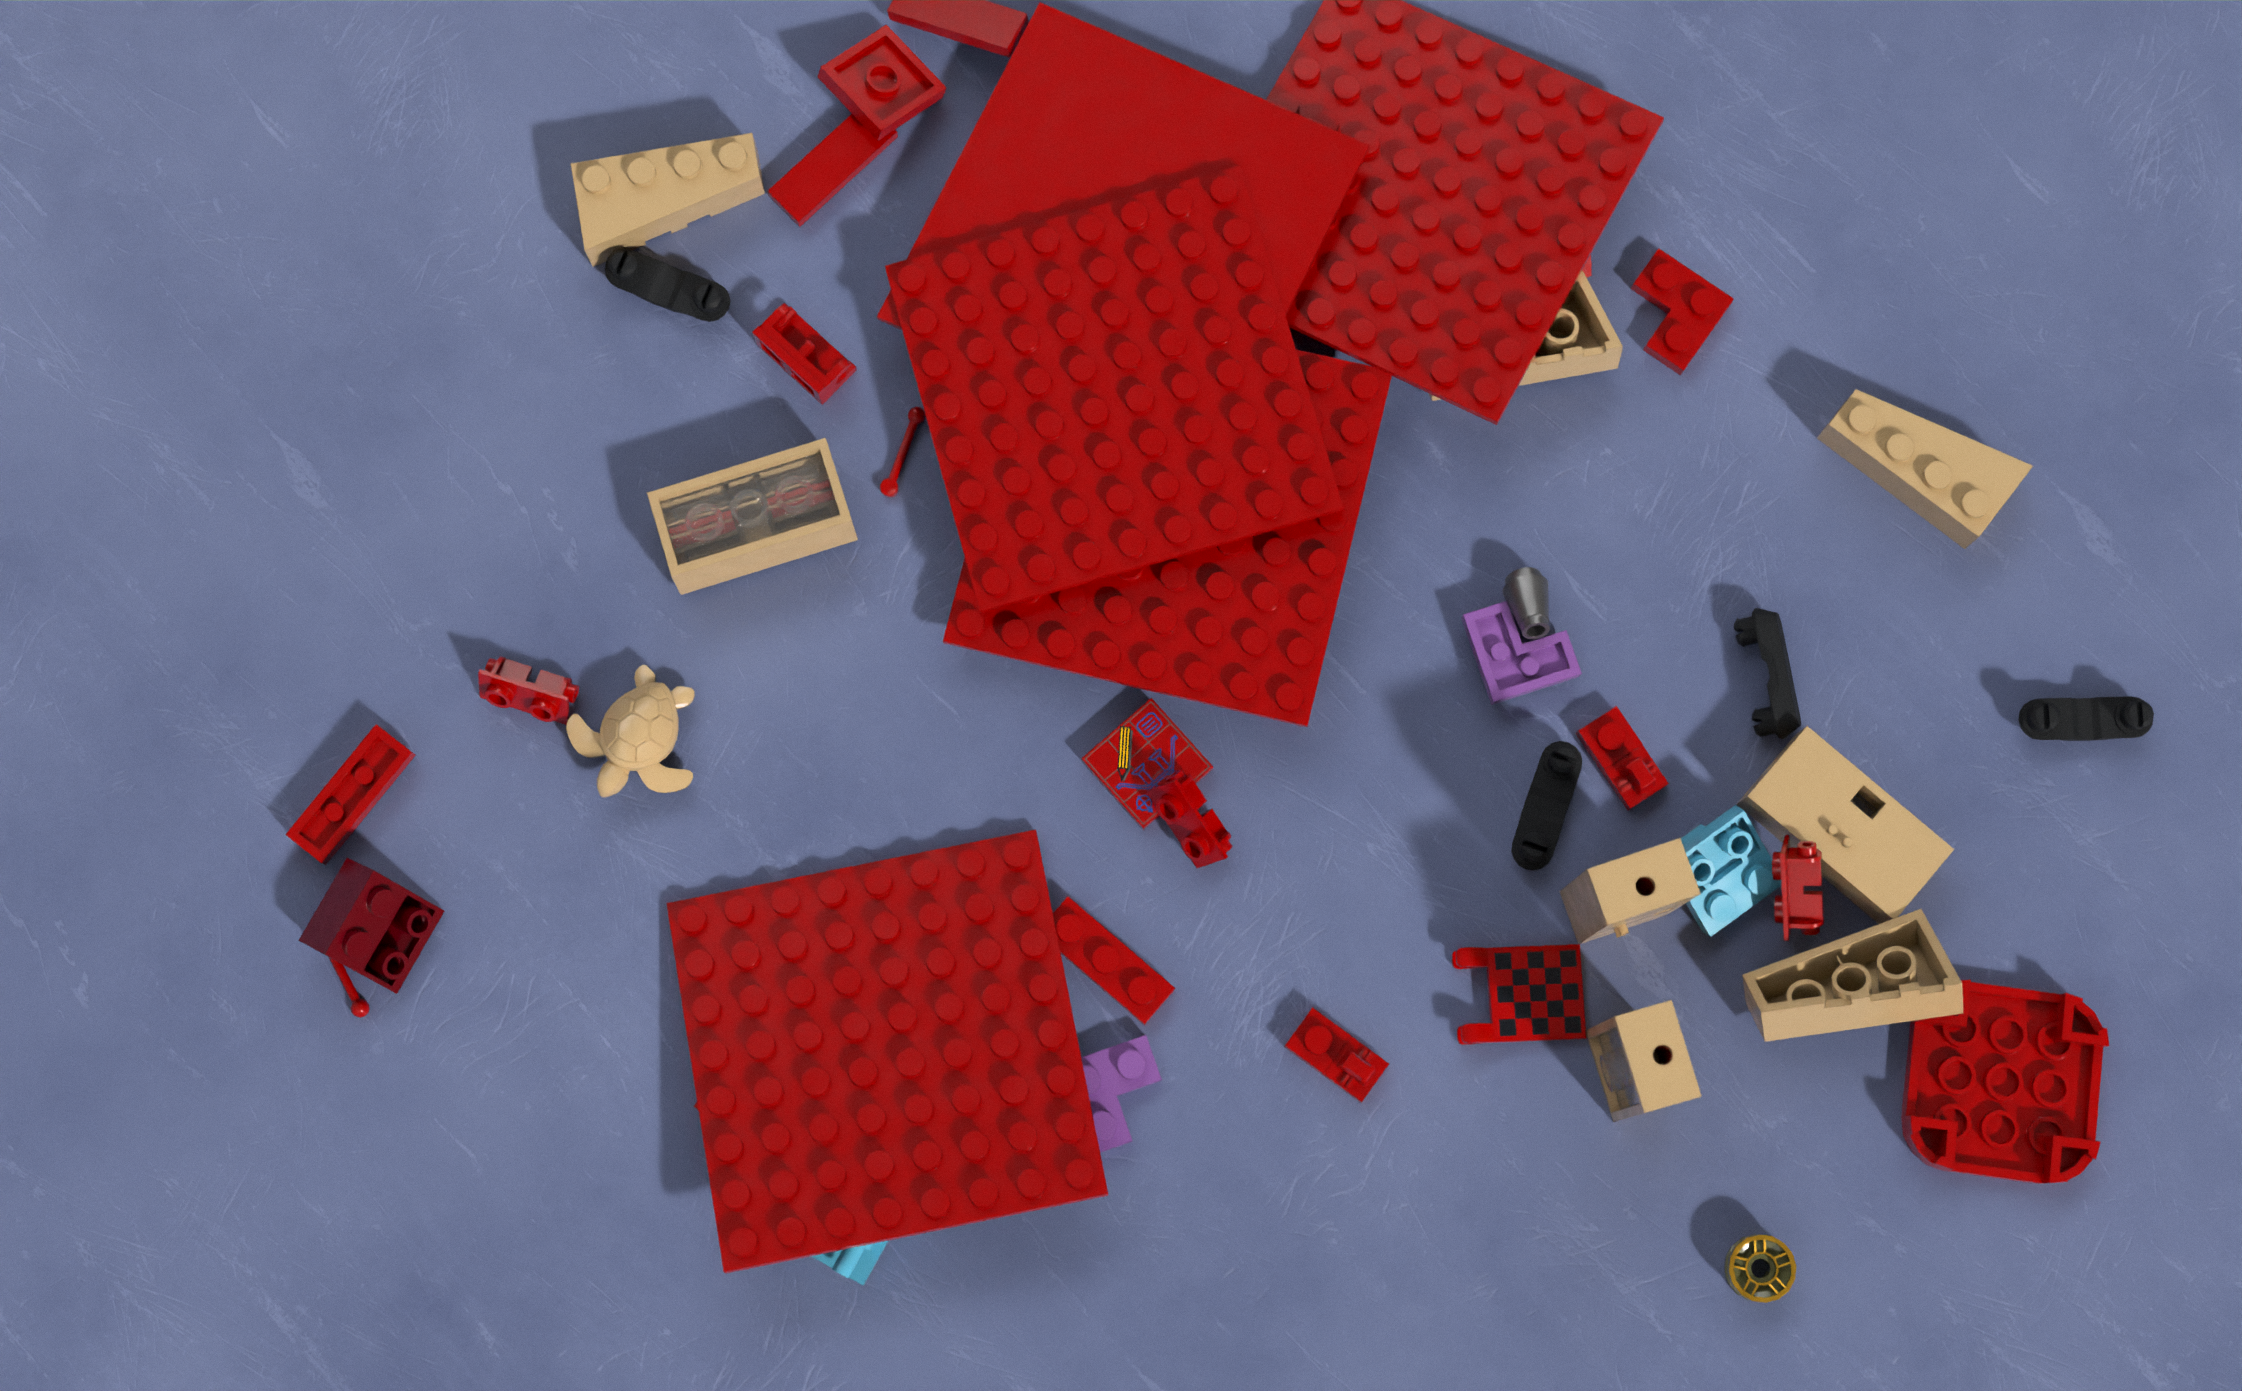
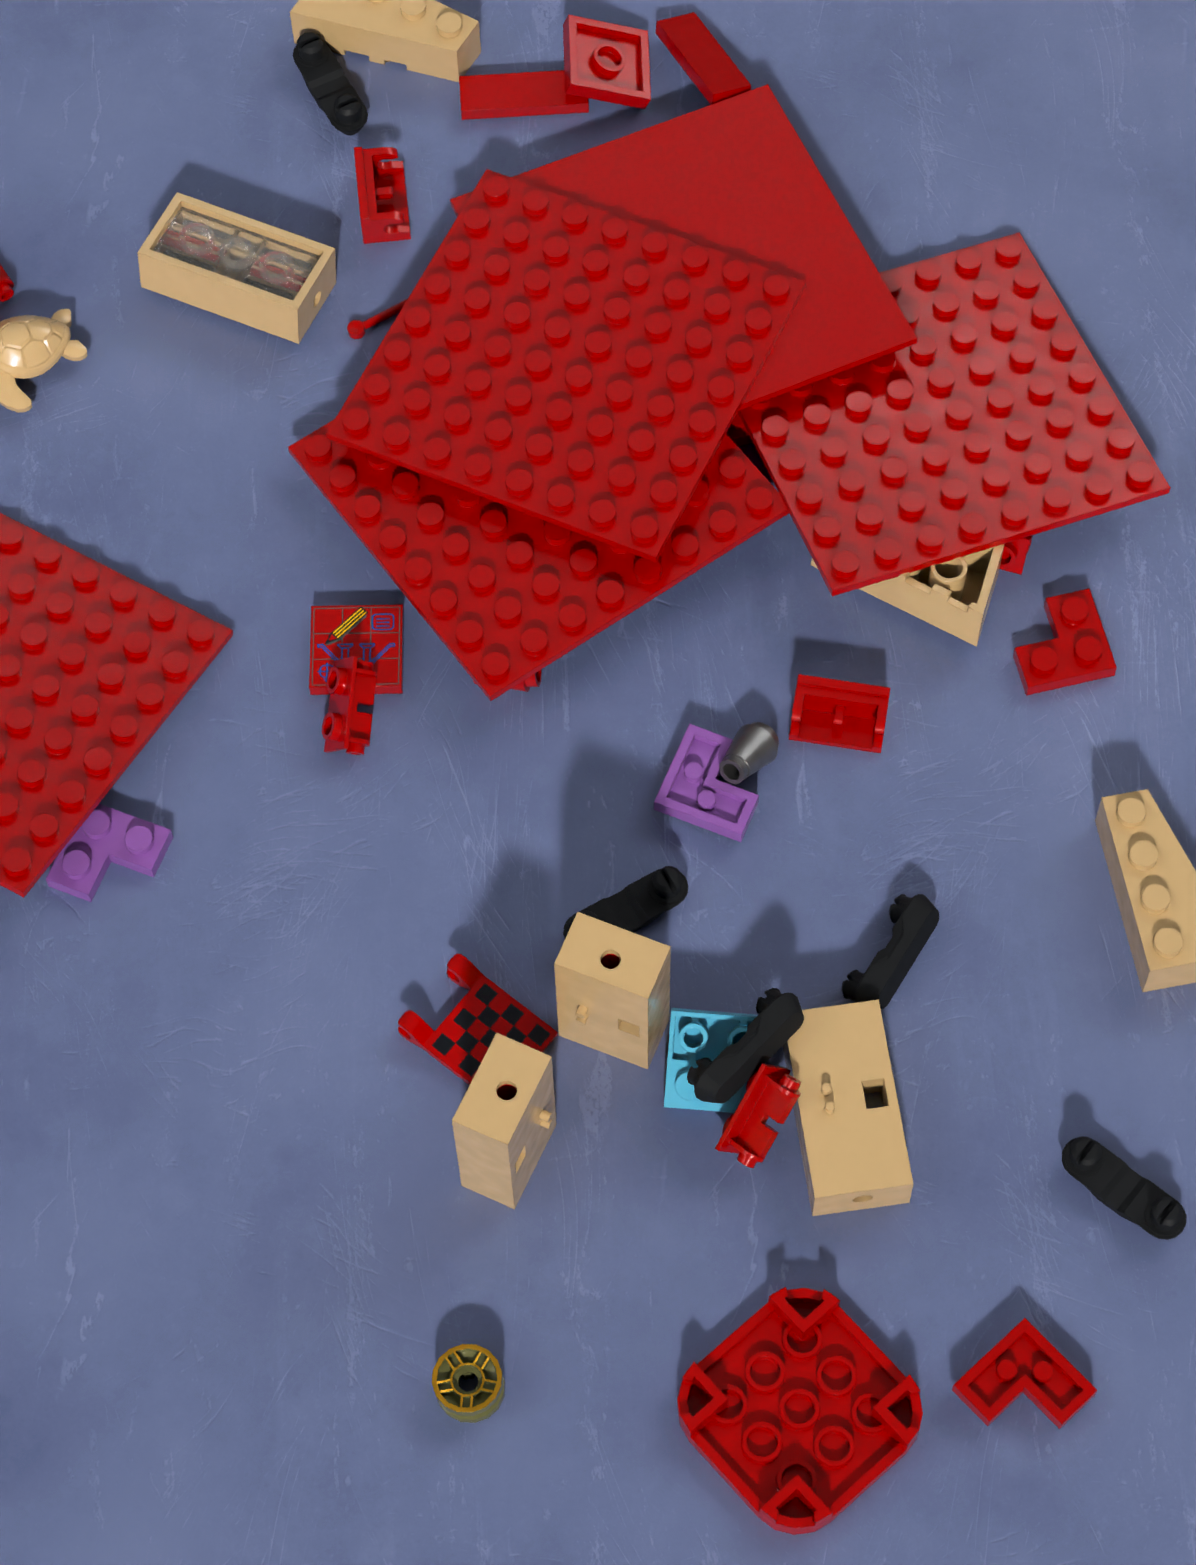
camera: 45 degrees right, 15 degrees down
(1109, 962) = (195, 762): red plate -> none
(1336, 1055) = (297, 961): red hinge -> none
(1565, 510) = (839, 713): none -> red hinge
(1622, 758) = (719, 926): red hinge -> none
(1761, 805) = (777, 1021): none -> black piece
(1856, 982) = (739, 1220): tan wedge -> none
(2130, 913) = (1026, 1365): none -> red plate

